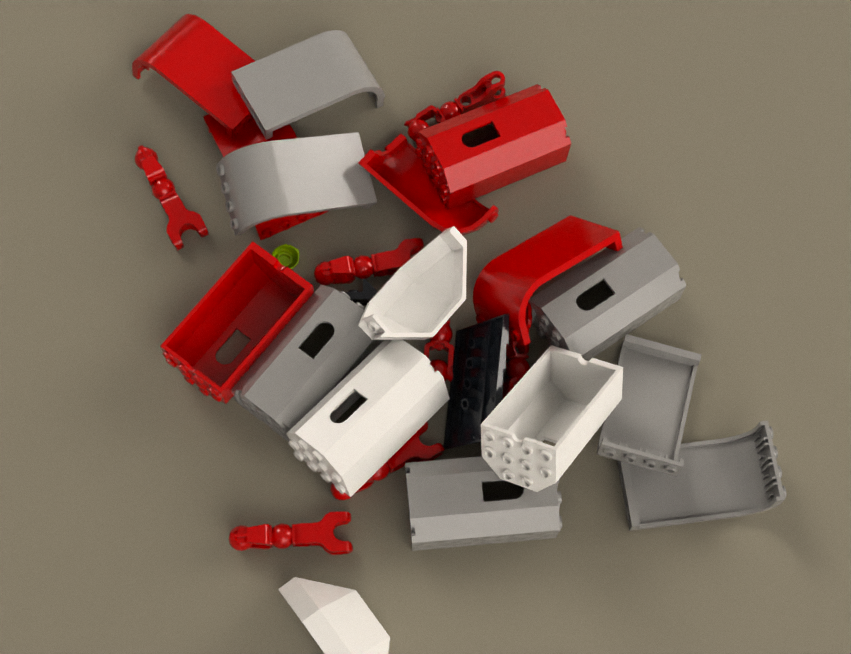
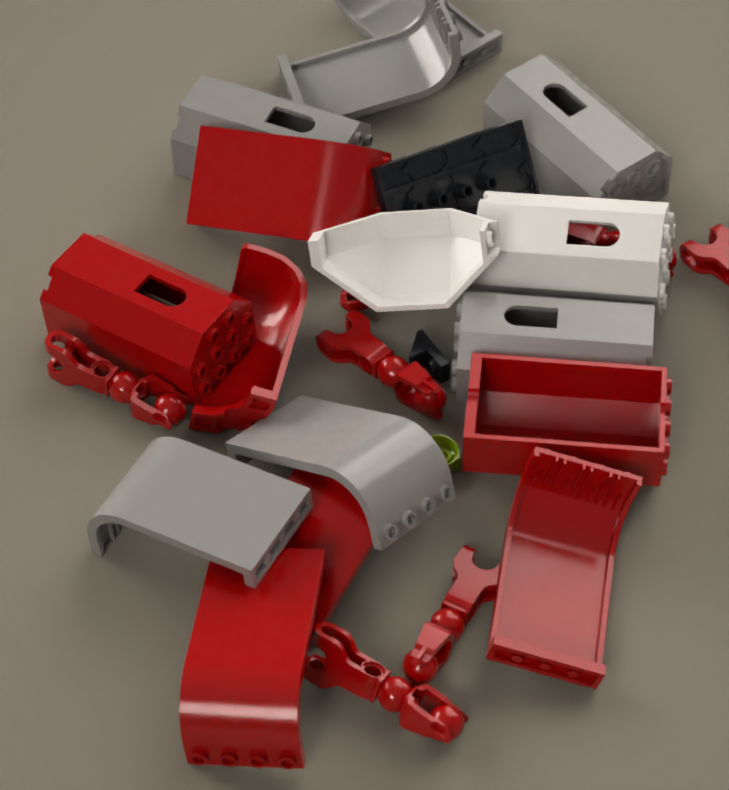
camera: 120 degrees left, 20 degrees down
(141, 135) = (420, 708): none -> red piece
(141, 255) = (559, 567): none -> red panel
(556, 402) = (425, 87): white panel -> none

